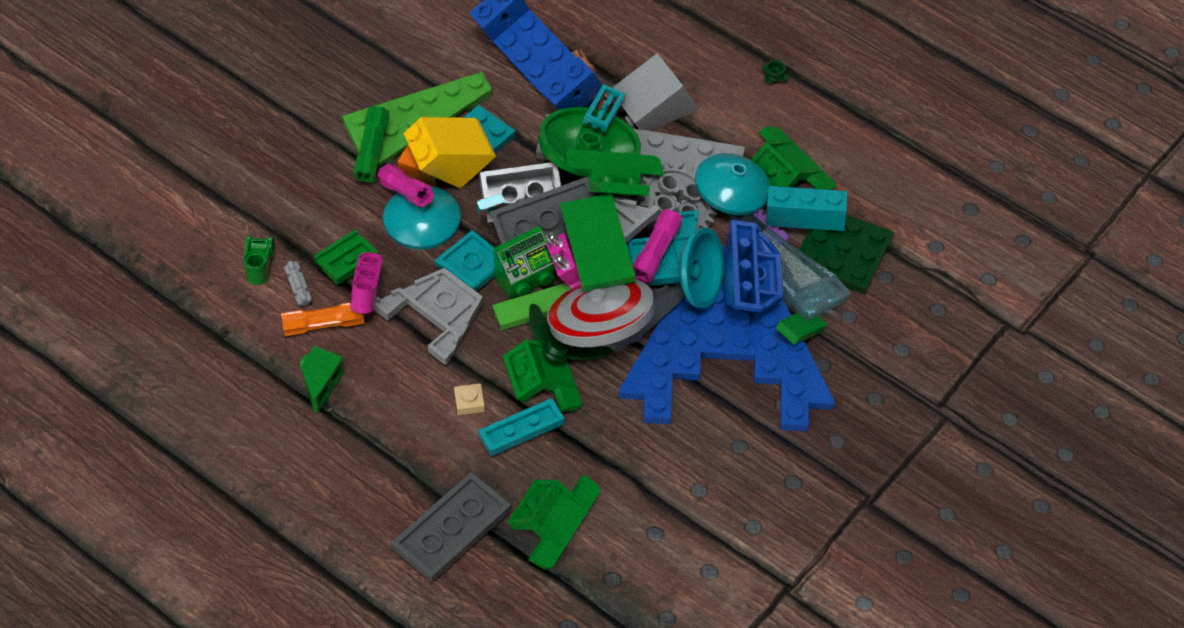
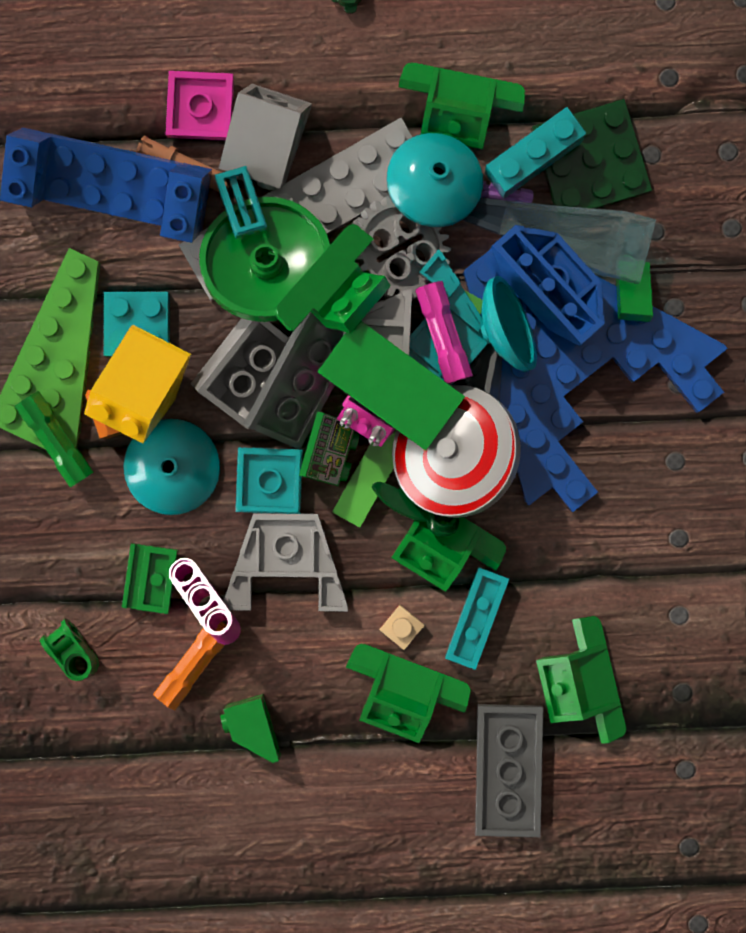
camera: 40 degrees left, 35 degrees up
(298, 283) = (133, 644): light grey axle -> none
(414, 189) = (151, 464): dark pink axle -> none
(430, 429) = (404, 692): none -> green plate
(489, 204) = (241, 419): tile -> none
(625, 57) = (199, 105): none -> dark pink plate

